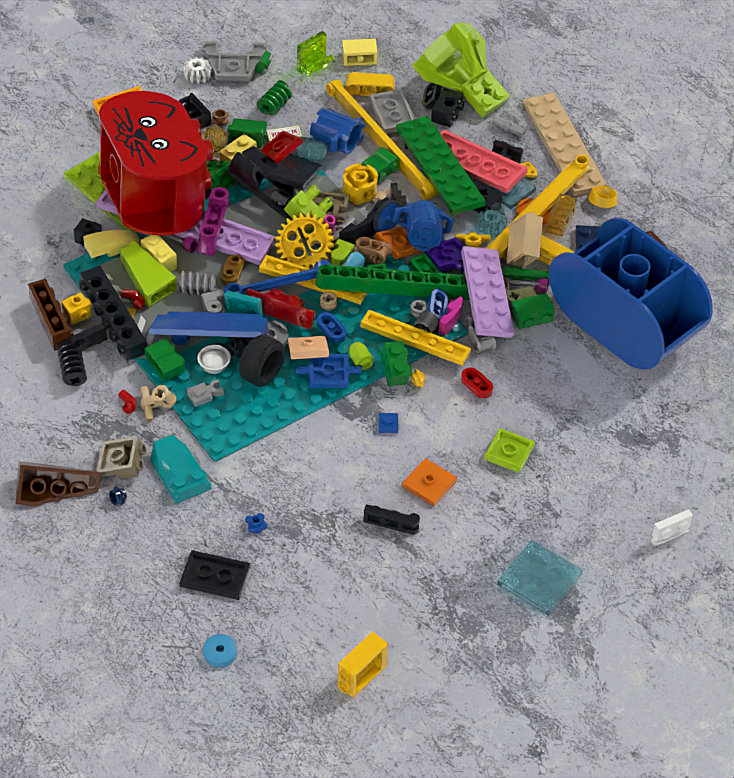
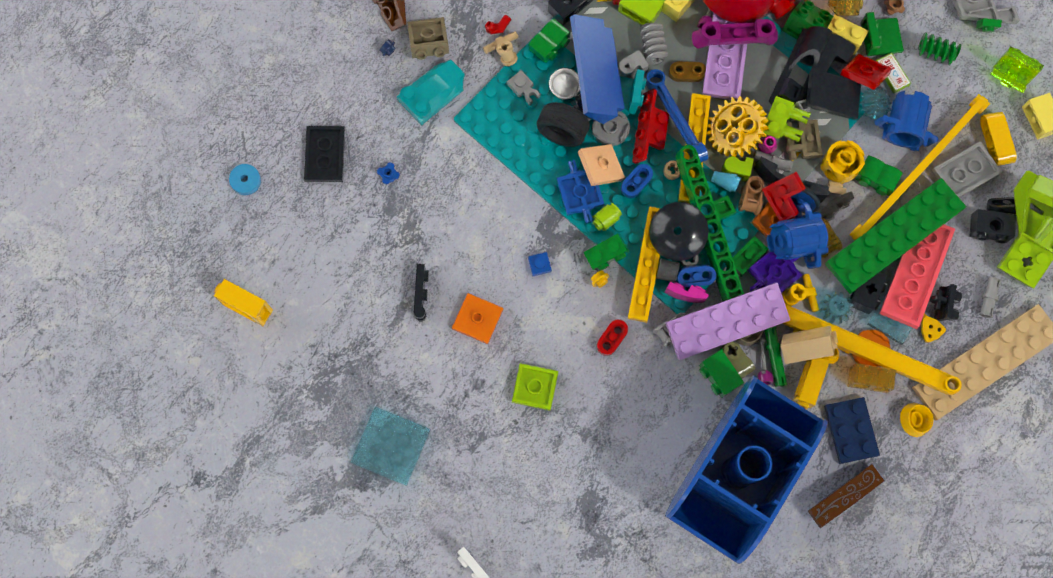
camera: 75 degrees right, 25 degrees up
(379, 223) = (780, 194): none -> red plate
(390, 309) = (693, 234): none -> black dish

